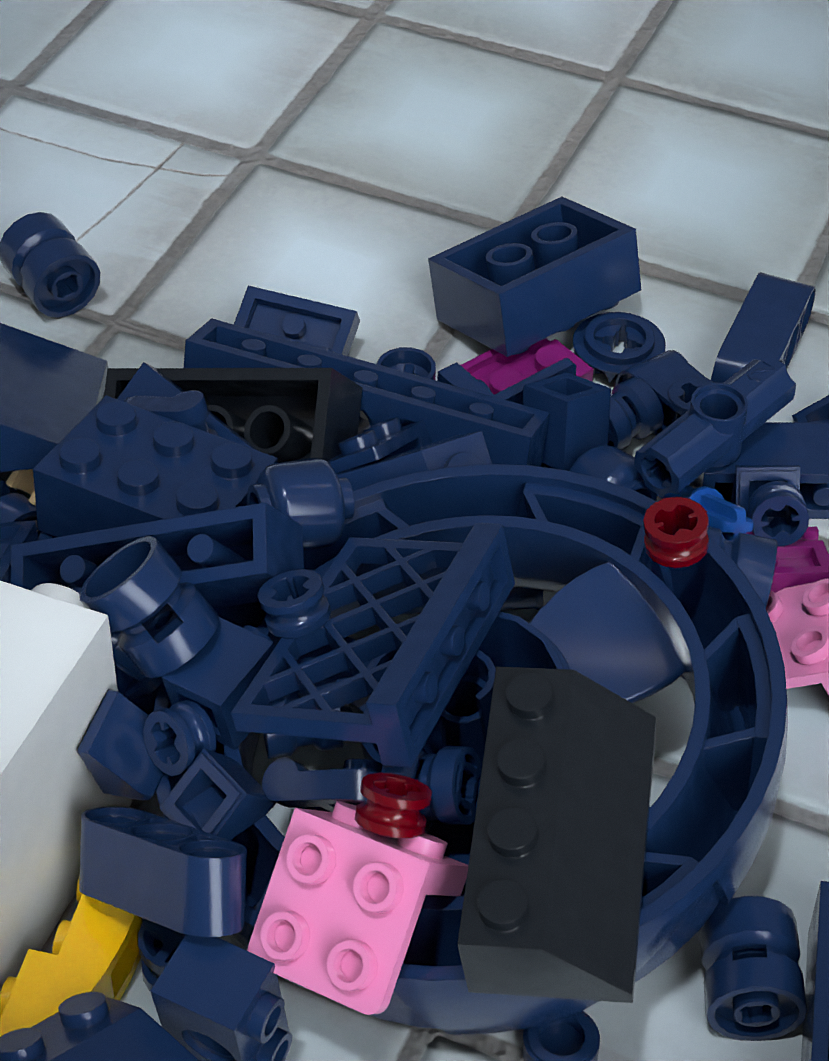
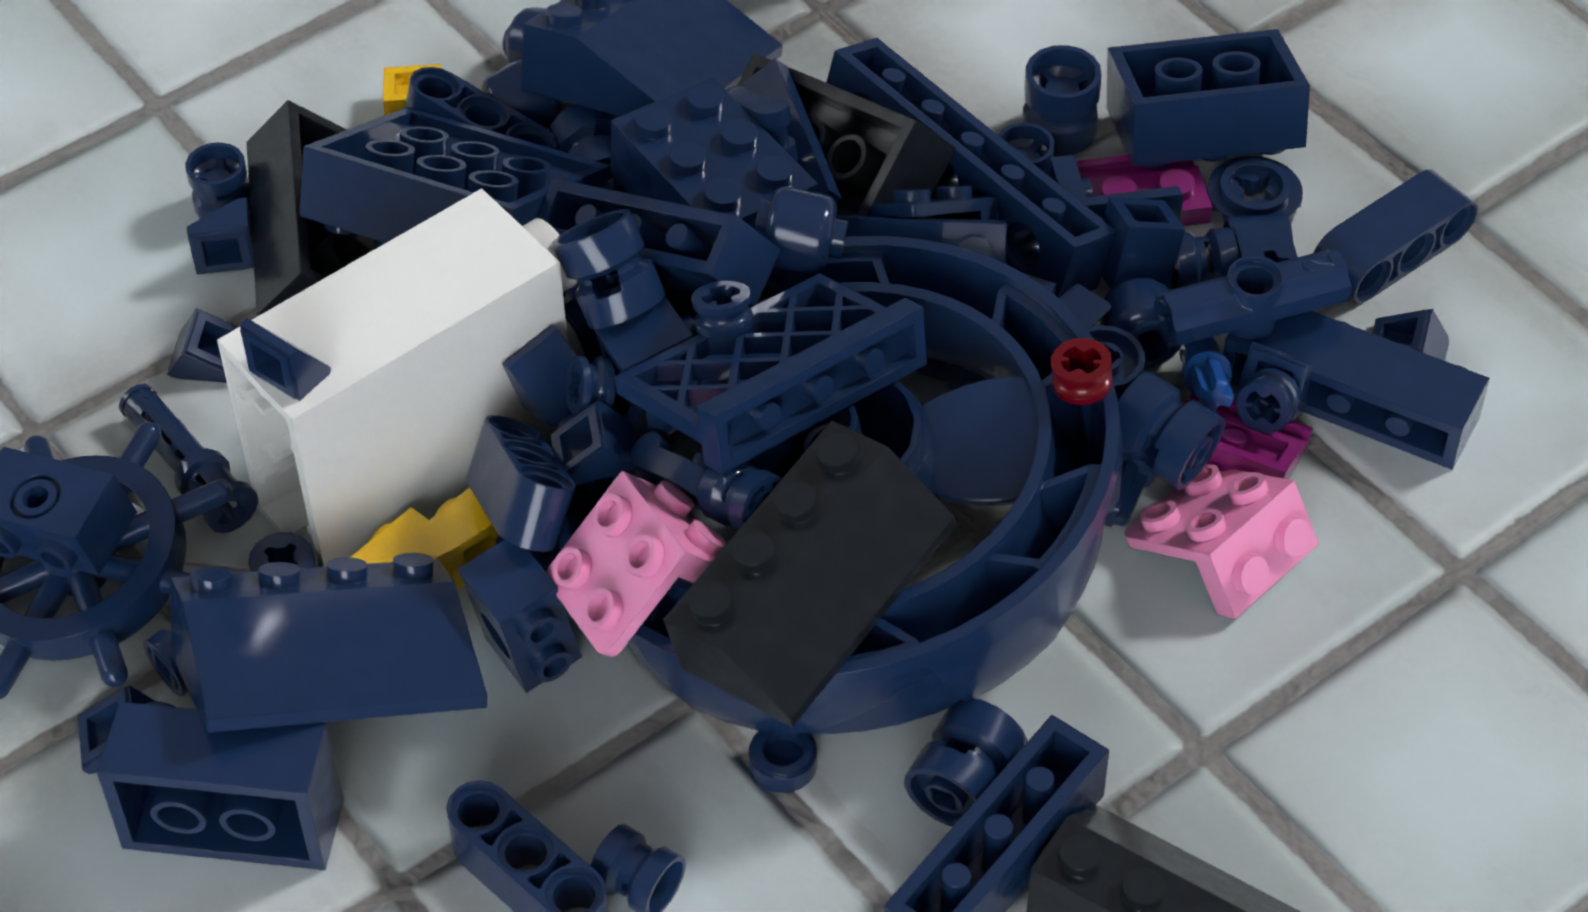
camera: 30 degrees right, 5 degrees up
(298, 319) = (964, 71): dark blue bracket -> none
(393, 805) = (691, 498): dark red bush -> none
(405, 311) = (1063, 96): none -> dark blue wheel

